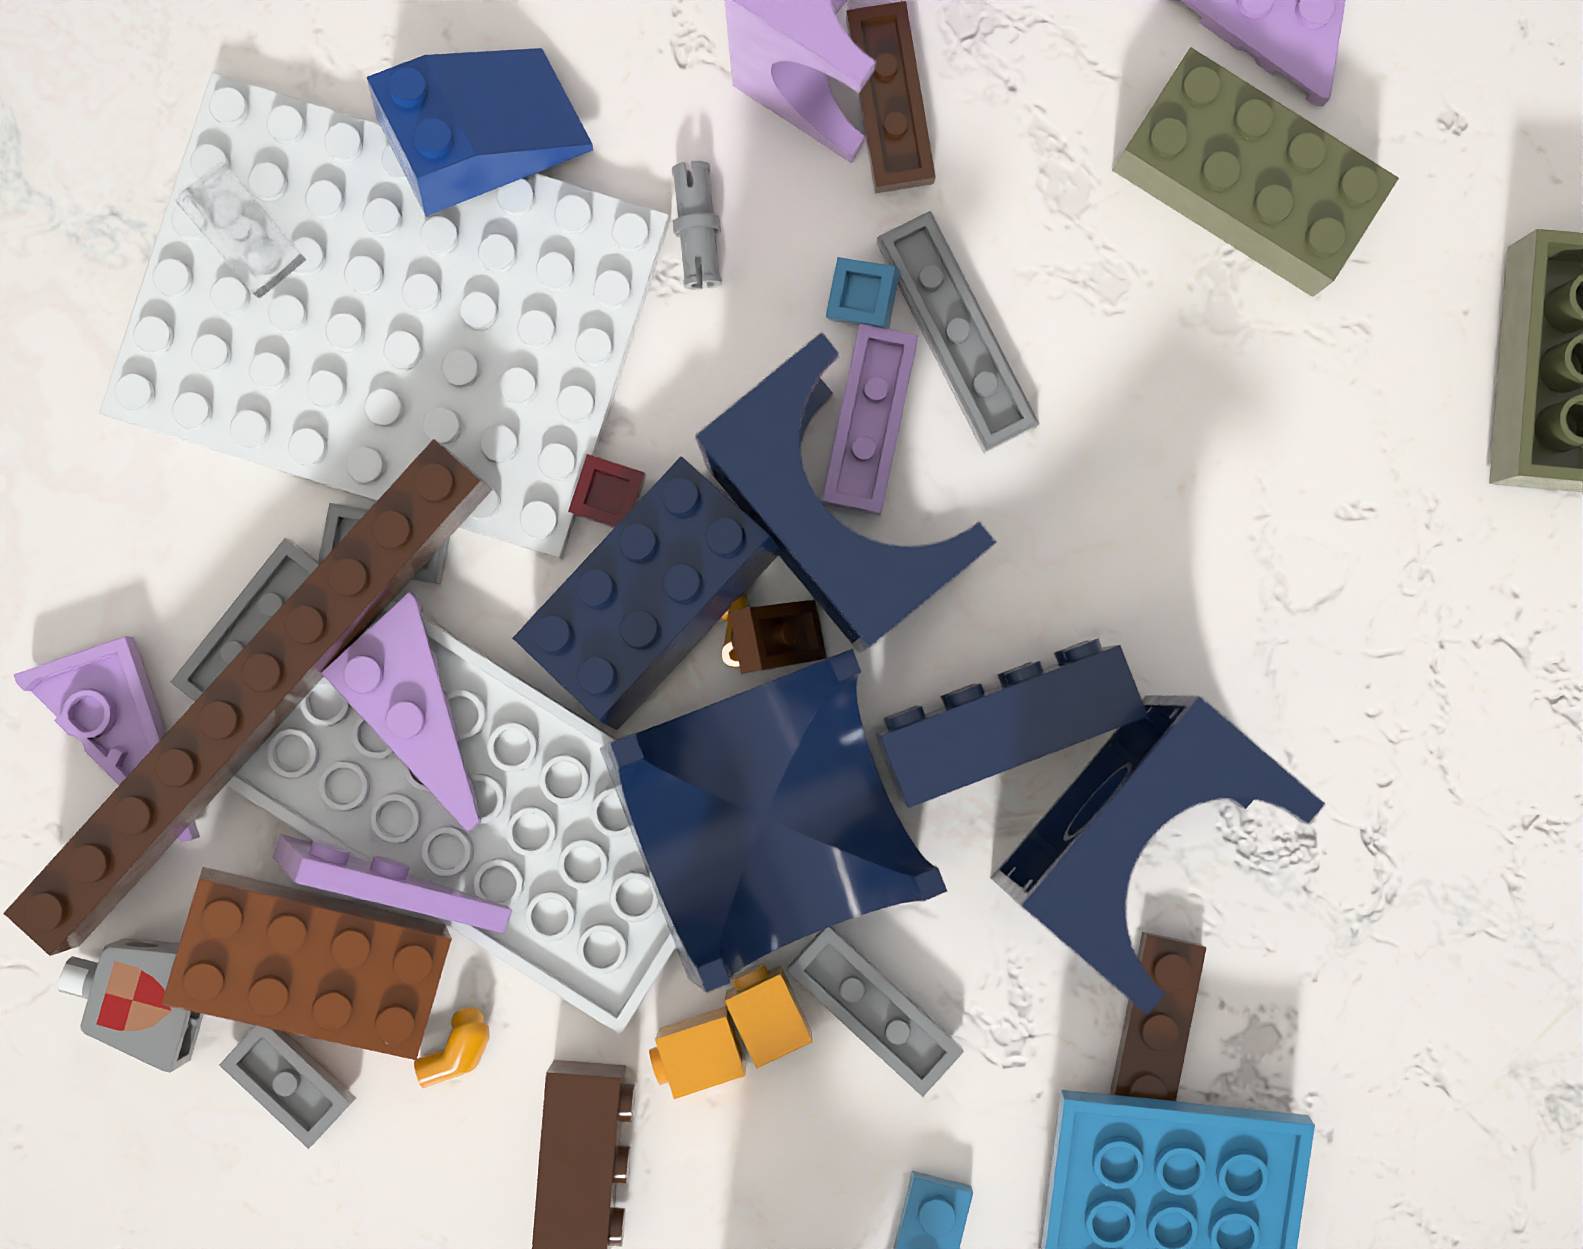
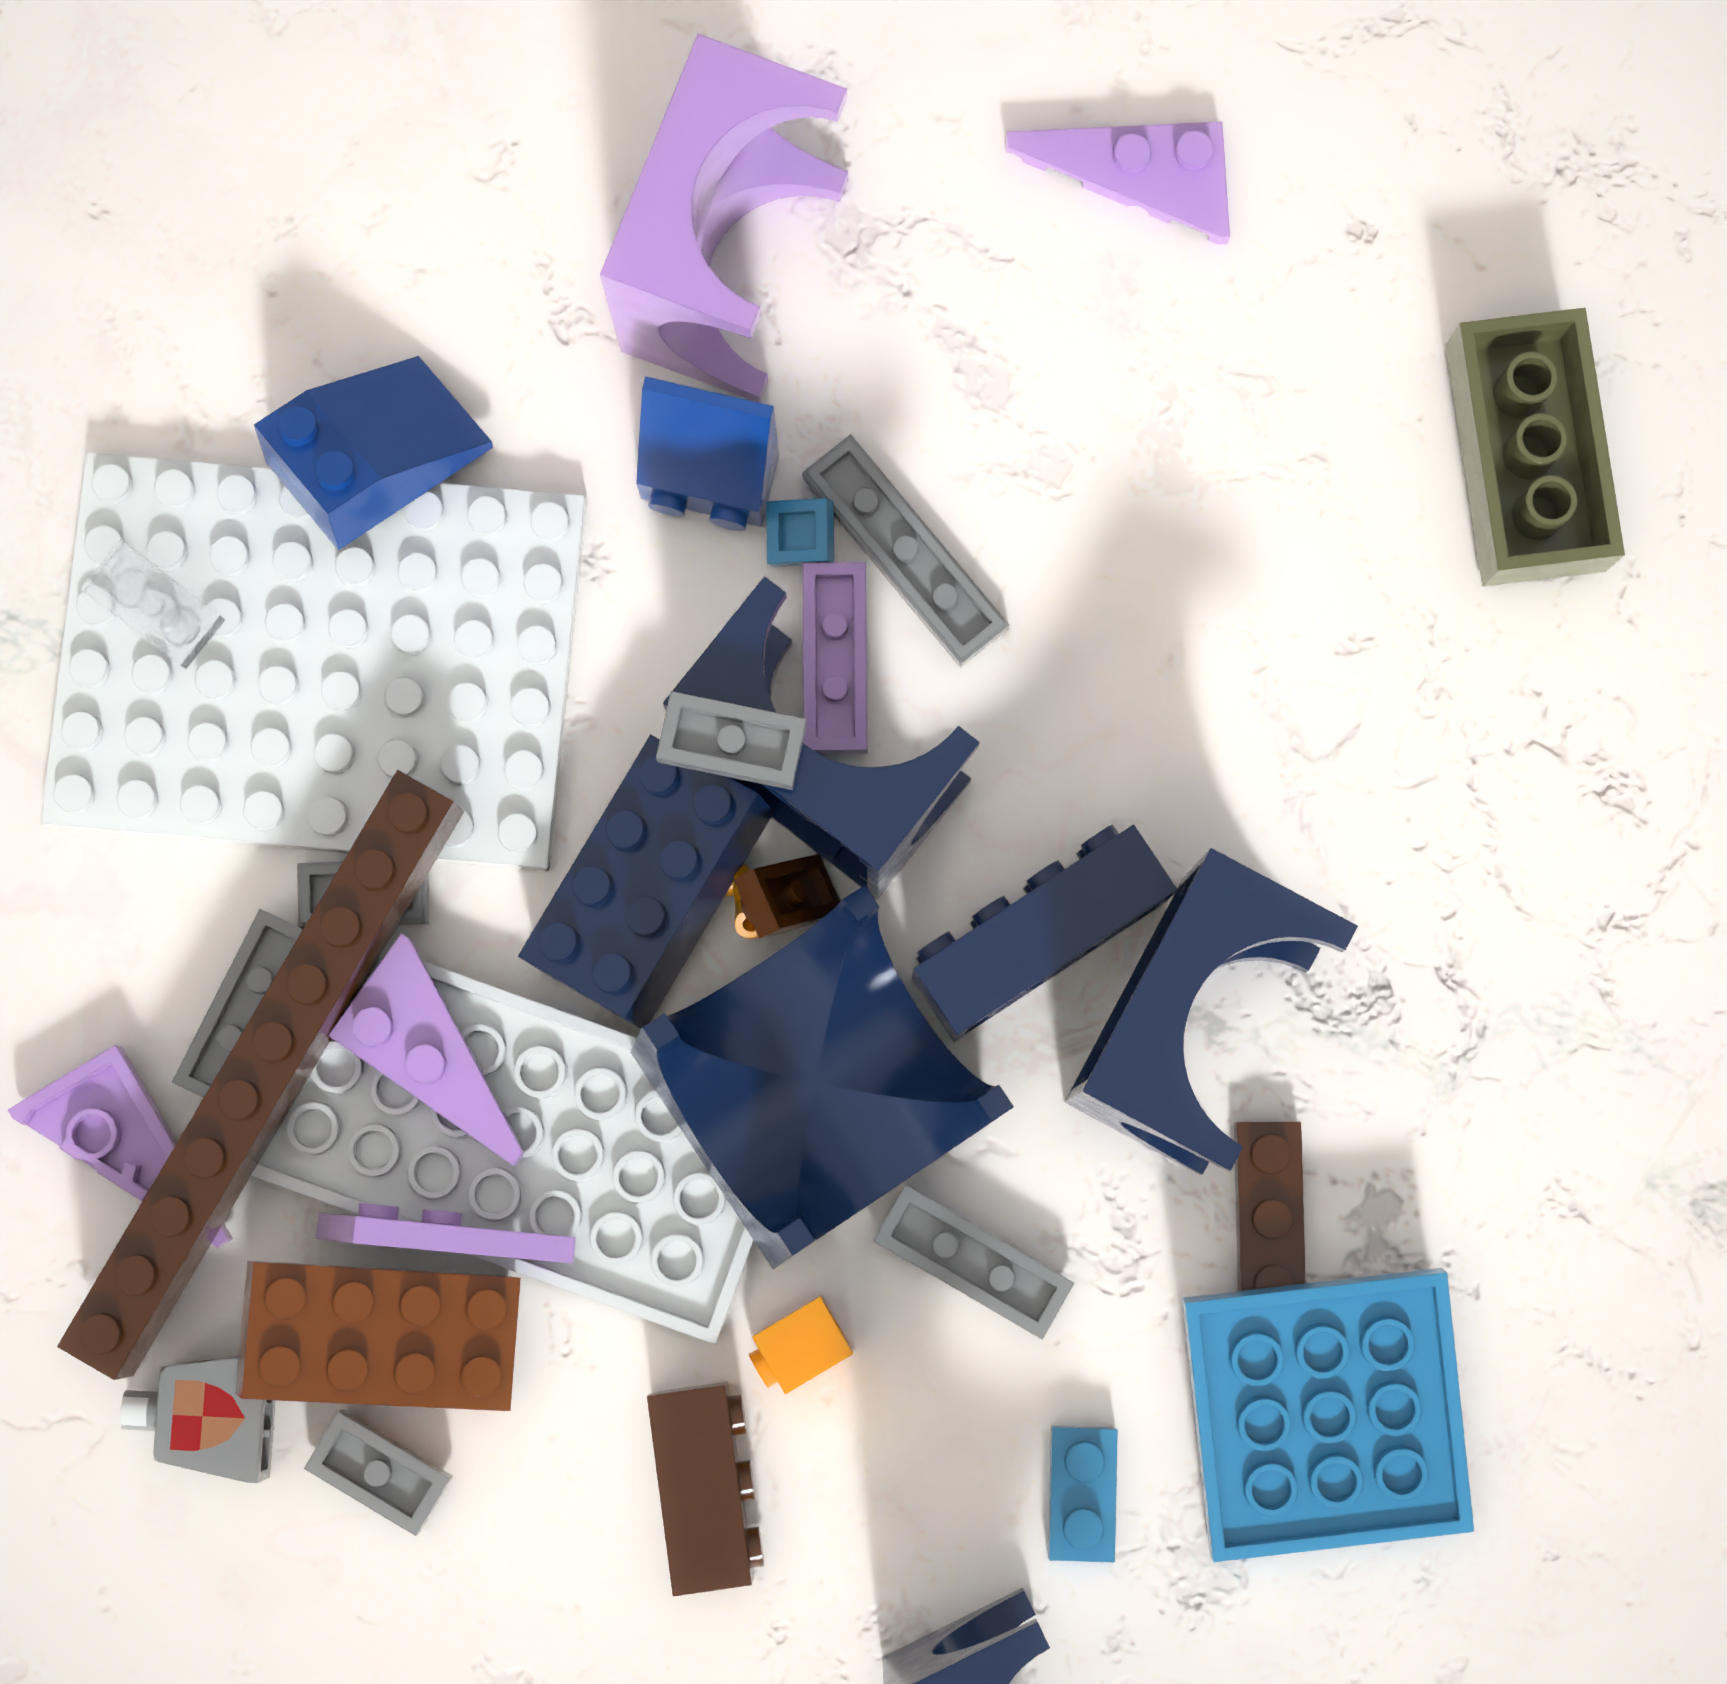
camera: 10 degrees left, 5 degrees down
(461, 1052) = (553, 1402): light orange arm -> none
(606, 491) = (580, 789): dark red plate -> none
(696, 225) = (615, 500): light grey pin -> none
(753, 488) = (731, 740): none -> light grey plate
(767, 1014) = (862, 1288): light orange brick -> none
(790, 197) = (705, 454): none -> blue slope
(892, 99) = (786, 330): reddish brown plate -> none
(1255, 173) = (1168, 327): olive brick -> none

